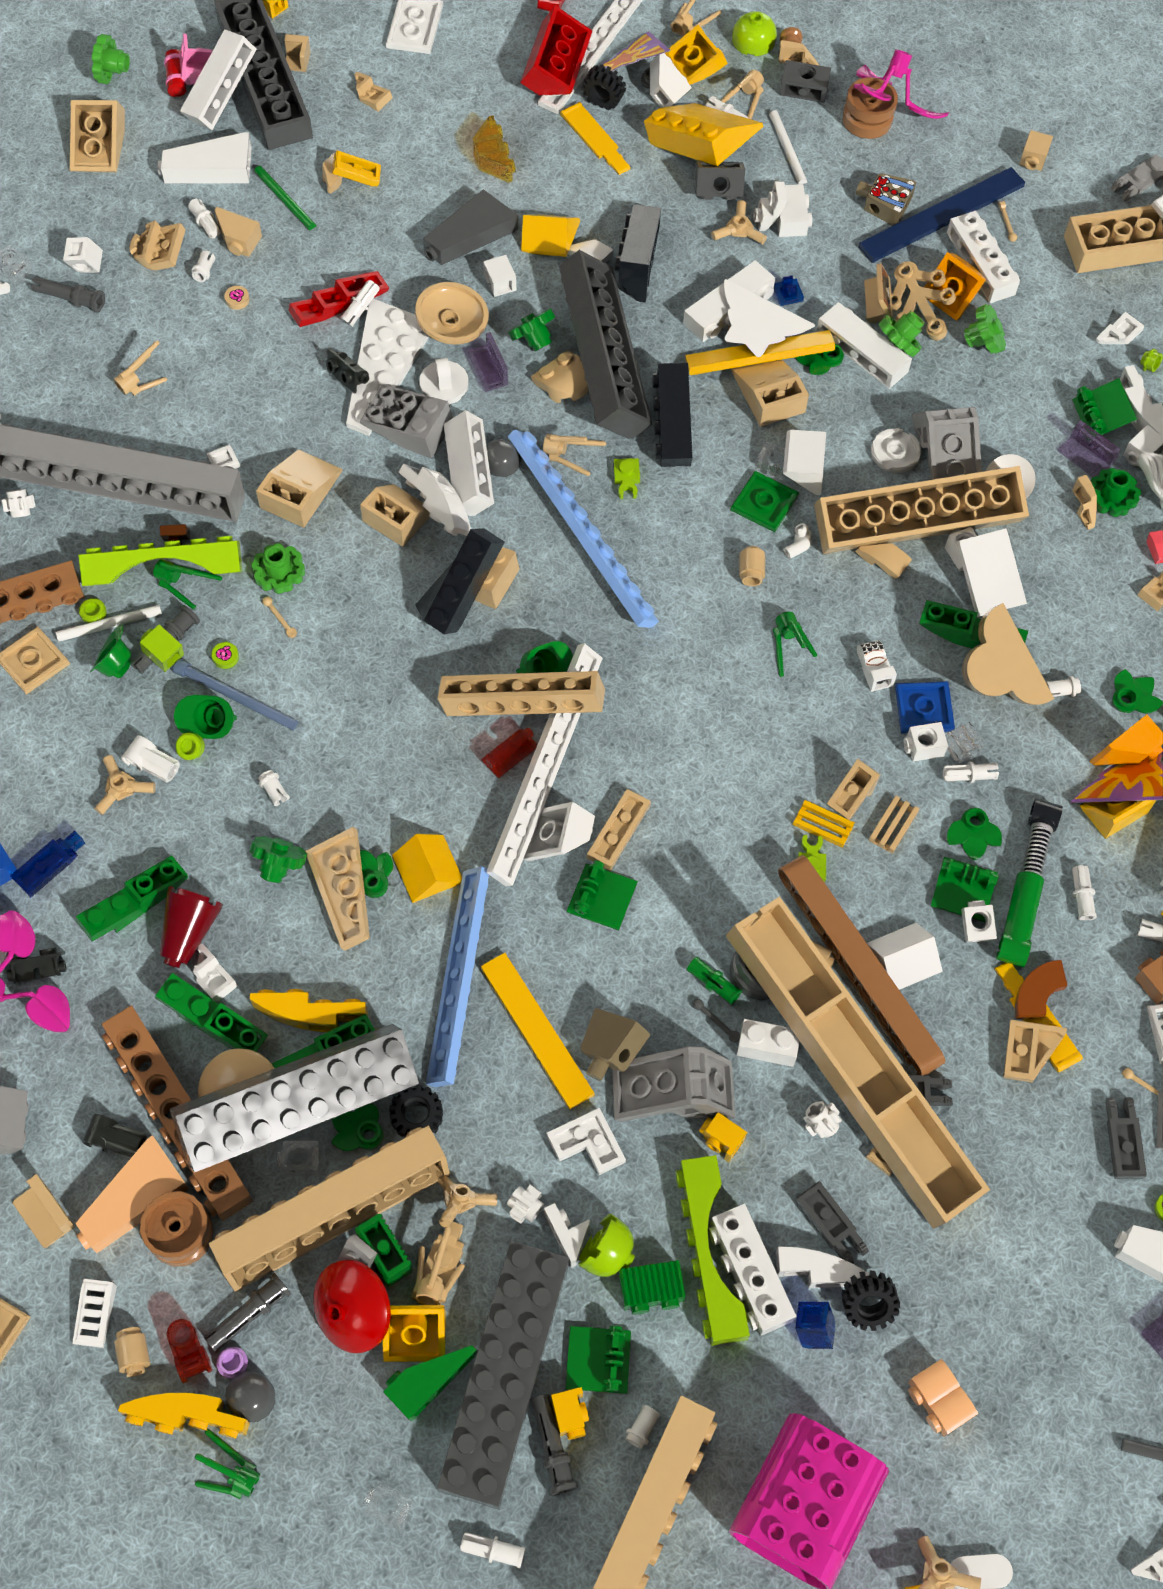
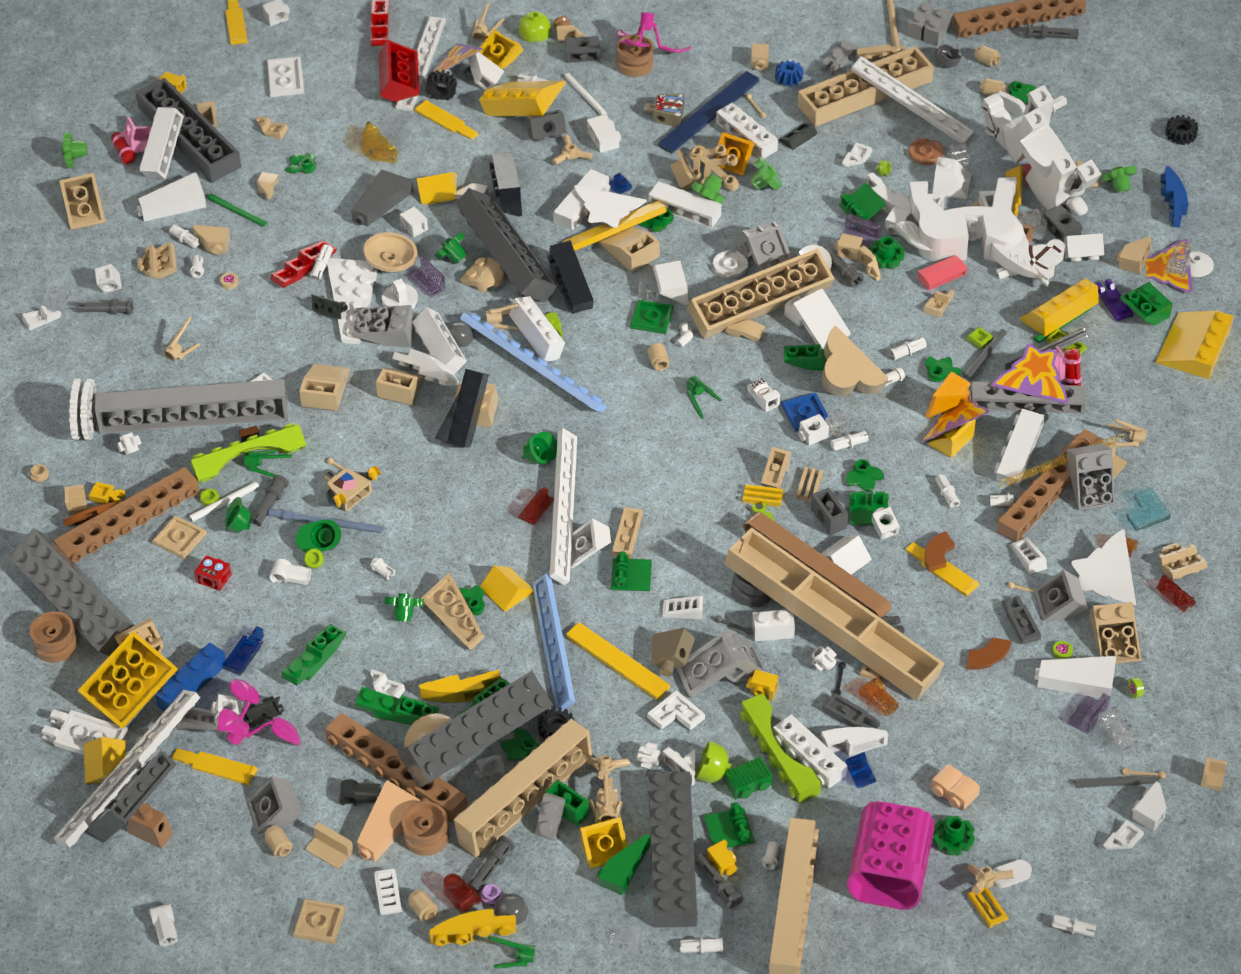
camera: 15 degrees left, 15 degrees down
(51, 729) = (213, 573): none -> red head
(120, 786) = (275, 594): tan piece -> none
(161, 647) = (272, 502): lime brick -> none
(185, 924) = (357, 657): dark red cone -> none
(225, 655) = (315, 500): lime tile -> none
(272, 651) = (349, 486): none -> torso
(278, 568) = (330, 438): bright green plant -> none
(351, 168) = (283, 178): yellow tile -> none
(351, 1306) = (570, 836): red dish -> none
(390, 151) = (302, 163): none -> green plate
(521, 693) = (533, 465): tan brick -> none
(603, 480) = (537, 329): none -> white brick
(650, 981) = (690, 613): none -> white slope
(728, 992) = (724, 602): green pin -> none
(750, 84) = (544, 60): tan plant -> none
(771, 207) = (589, 134): white slope -> none
(824, 1176) = (841, 665): none -> black hinge
(874, 1314) = (899, 753): black tyre -> none
(878, 1200) = (876, 694): none -> clear orange piece
(906, 881) = (829, 511): none -> dark grey brick
(915, 1479) = (953, 835): none -> green plant
(1028, 886) = (910, 495): green piece -> none
(1029, 1049) = (943, 585): tan wing -> none
(1050, 502) = (846, 270): none -> dark grey pin
(1051, 281) = (799, 135): none -> pearl dark grey slope
(1060, 1183) = (989, 655): none -> dark orange tile
(1065, 468) = (848, 246): none -> tan brick
(1067, 185) = (789, 73): none -> blue gear
(1098, 648) = (908, 348): none -> white axle

